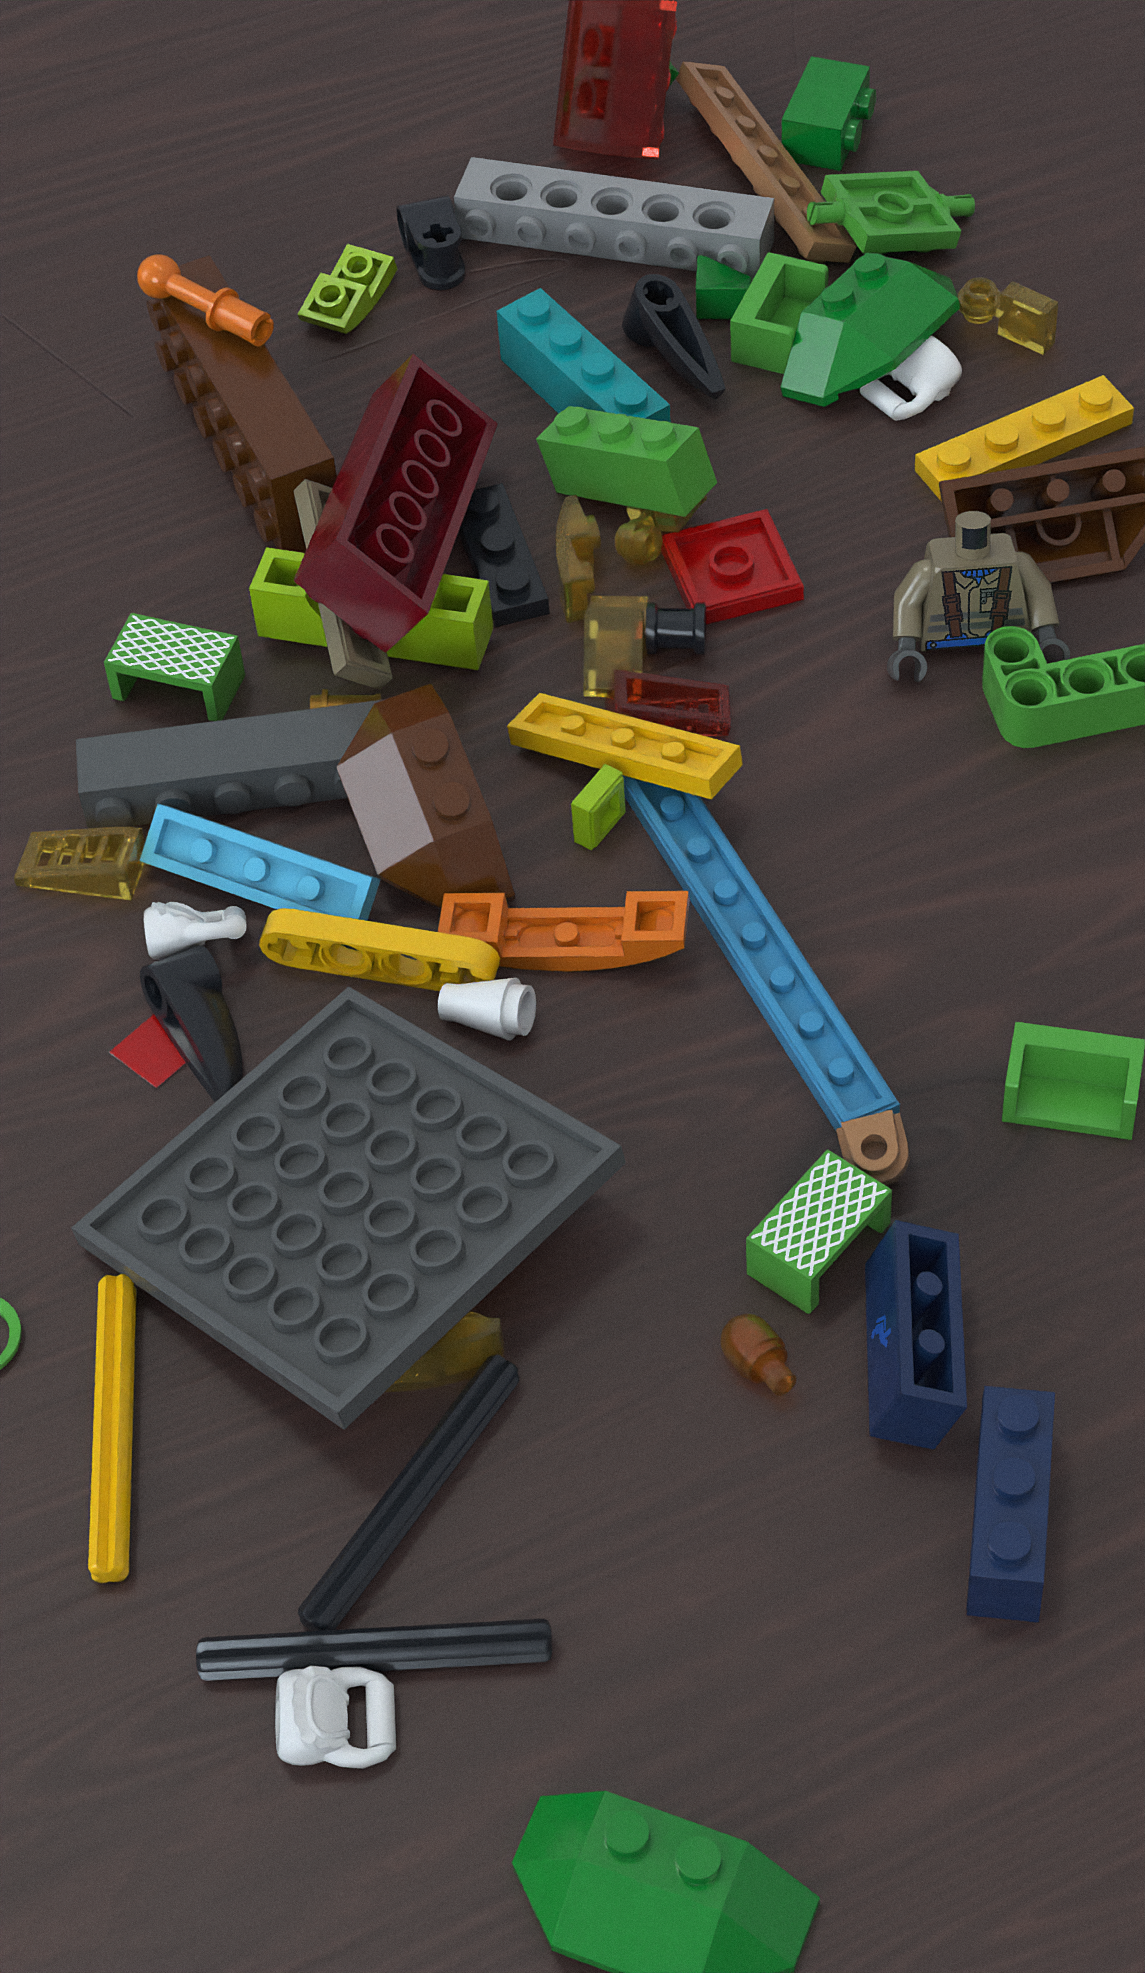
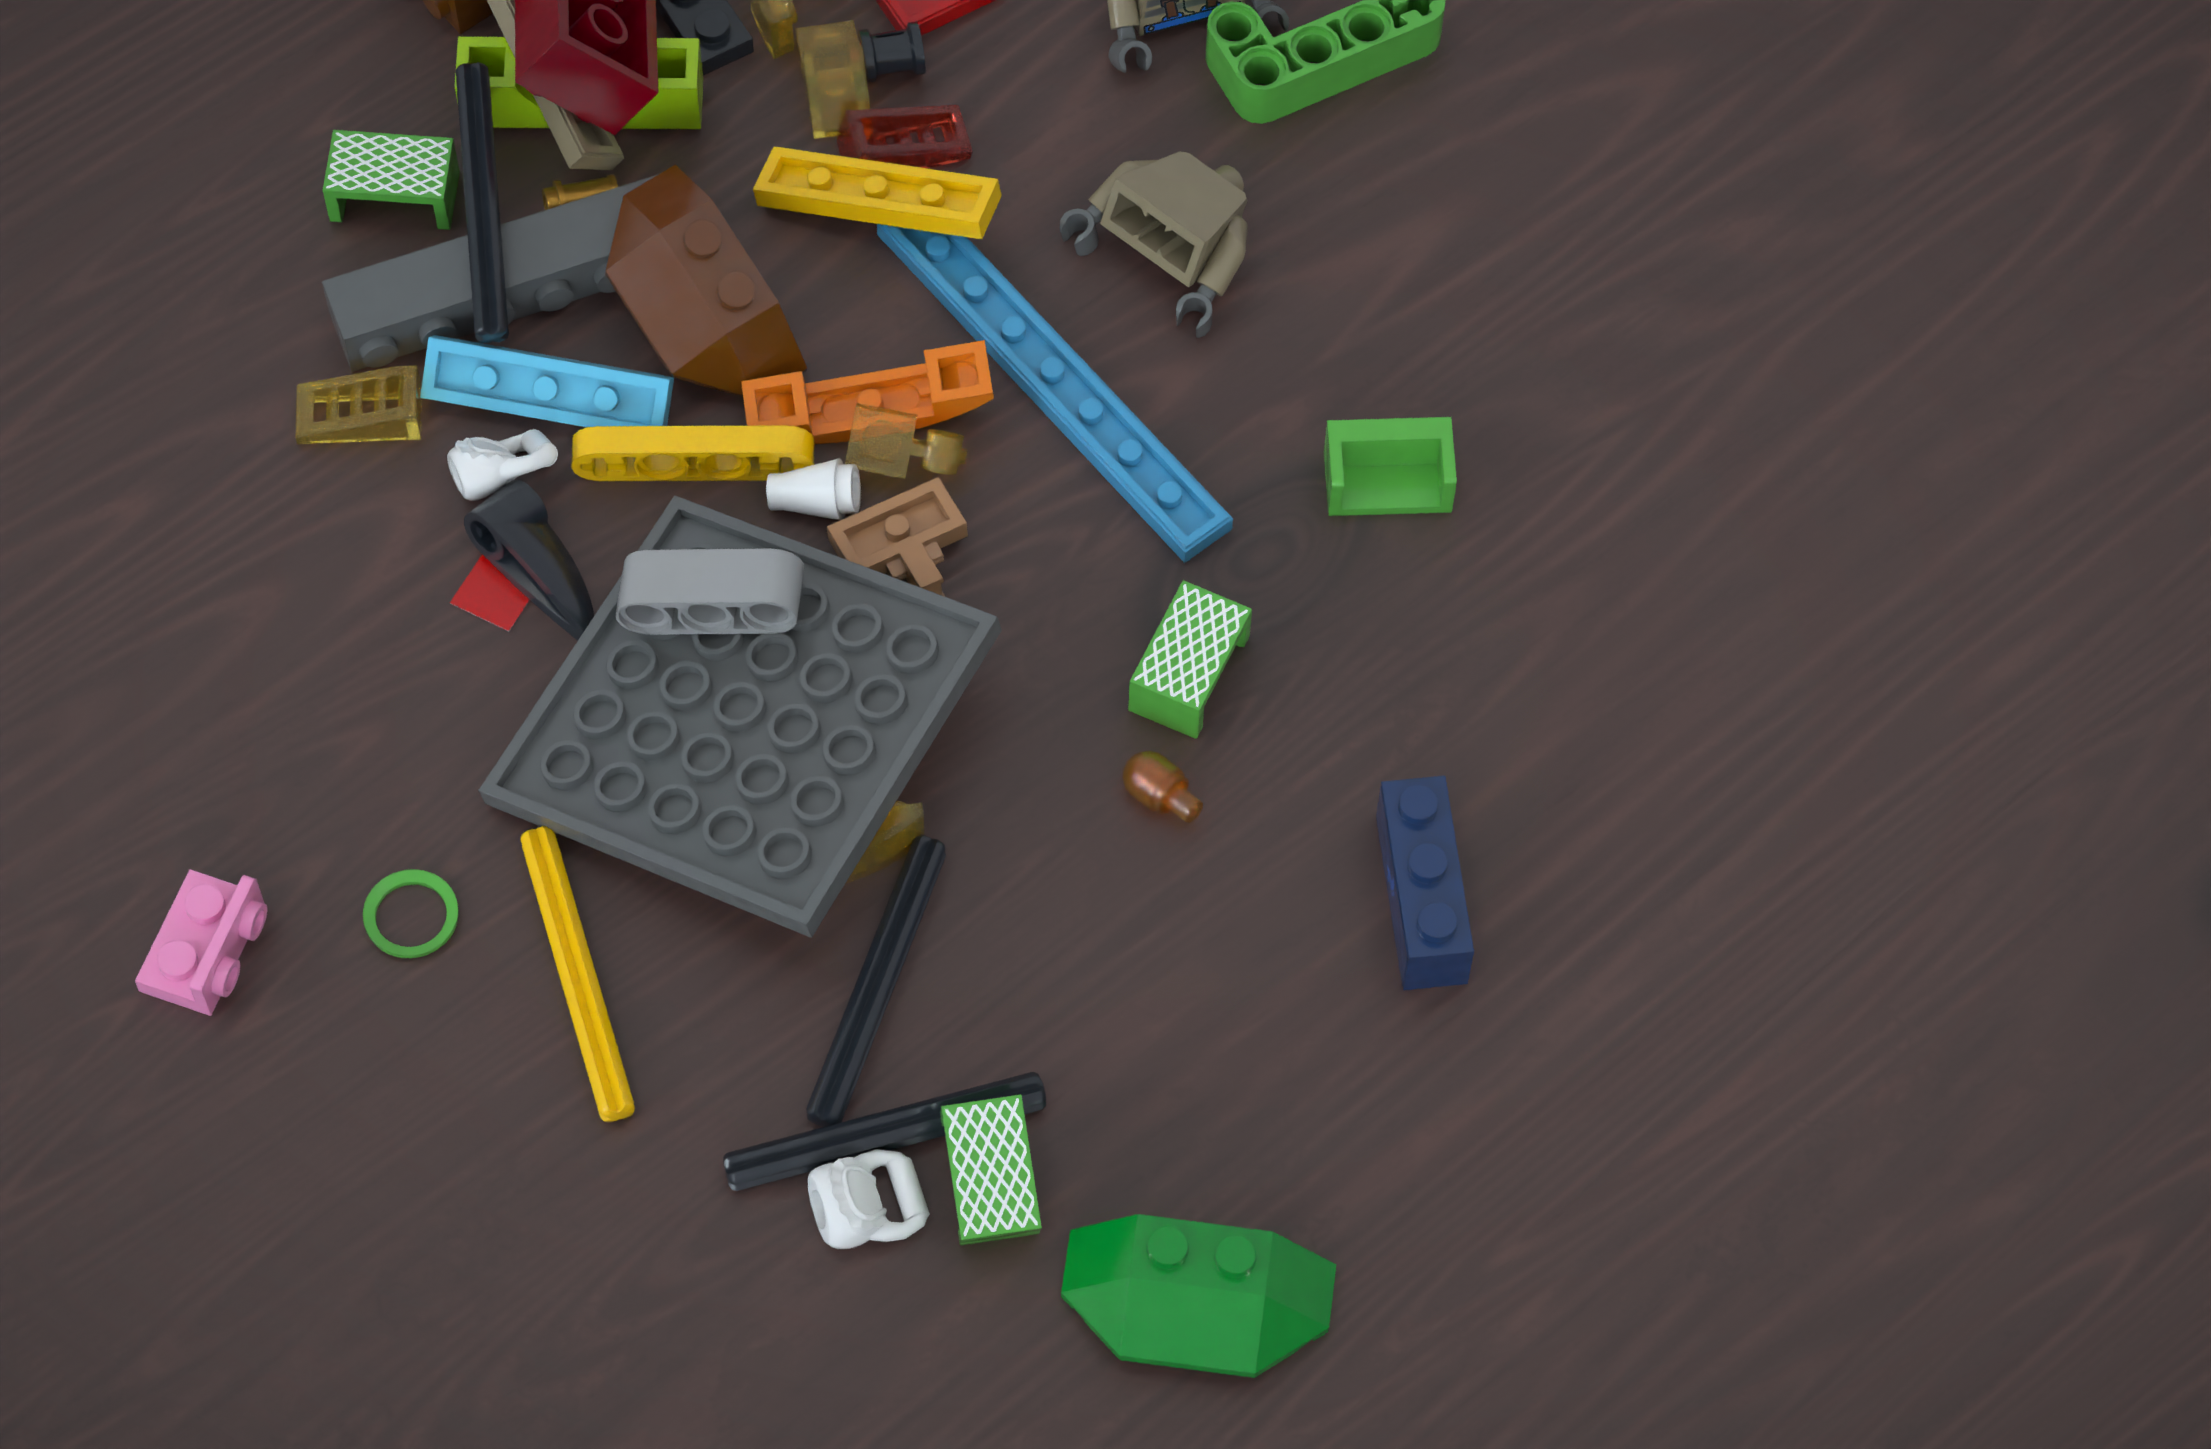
camera: 20 degrees left, 10 degrees up
(240, 692) = (482, 203): none -> black axle
(346, 1074) = (710, 591): none -> light grey beam
(465, 1711) = (991, 1169): none -> bright green panel
(562, 1061) = (903, 535): none -> medium nougat hinge
(569, 970) = (885, 440): none -> clear yellow plate
(598, 807) = (867, 262): lime tile -> none
(876, 1145) = (1224, 567): medium nougat piece -> none
(911, 812) = (1175, 217): none -> dark tan torso
(915, 1335) = (1304, 743): dark blue brick -> none

